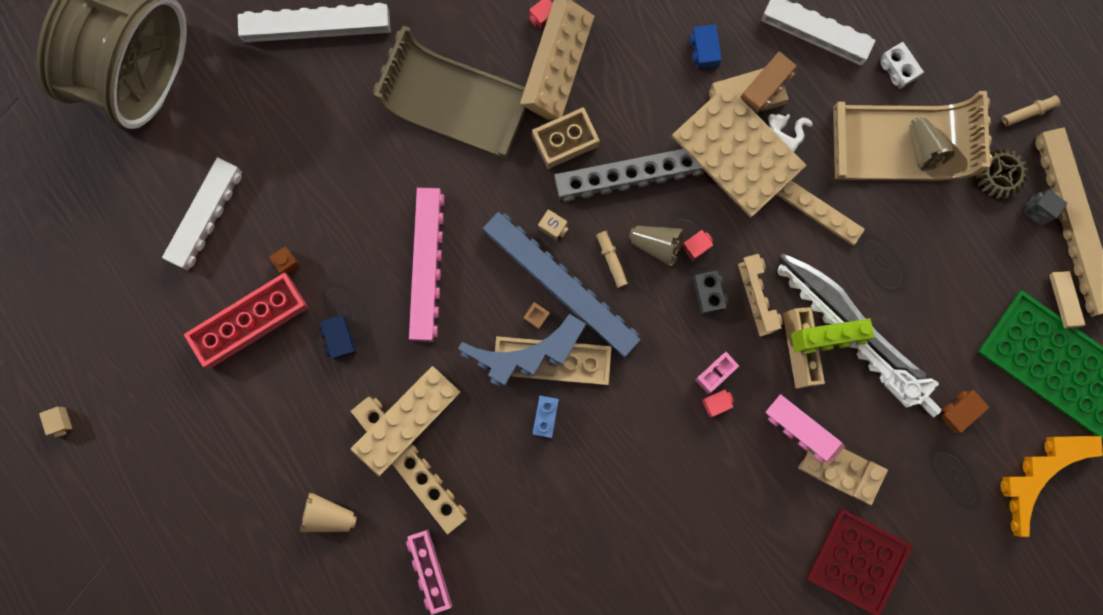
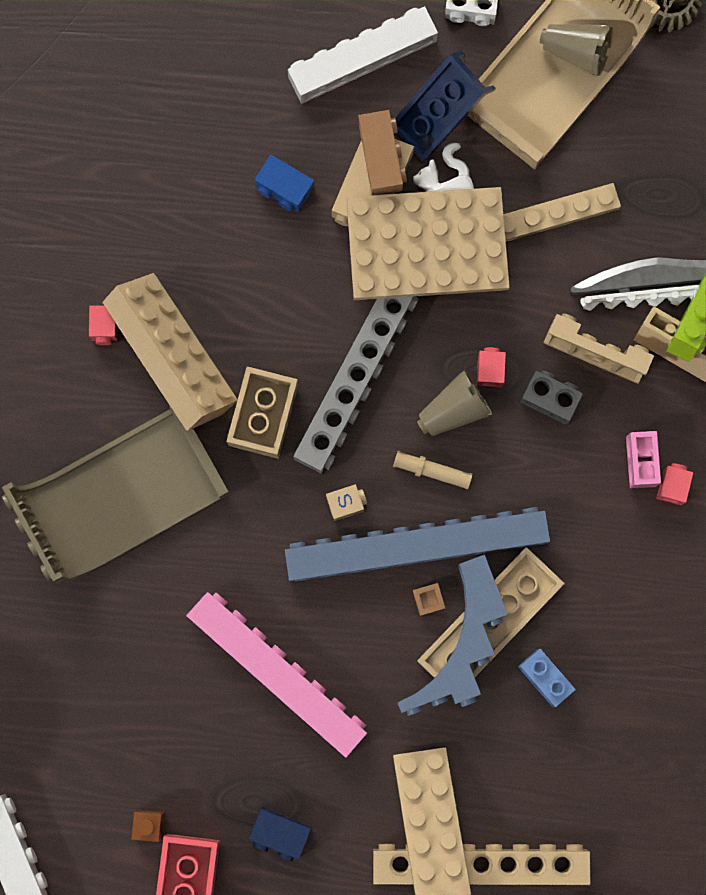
camera: 50 degrees left, 0 degrees up
(824, 93) = (440, 105): none -> dark blue plate

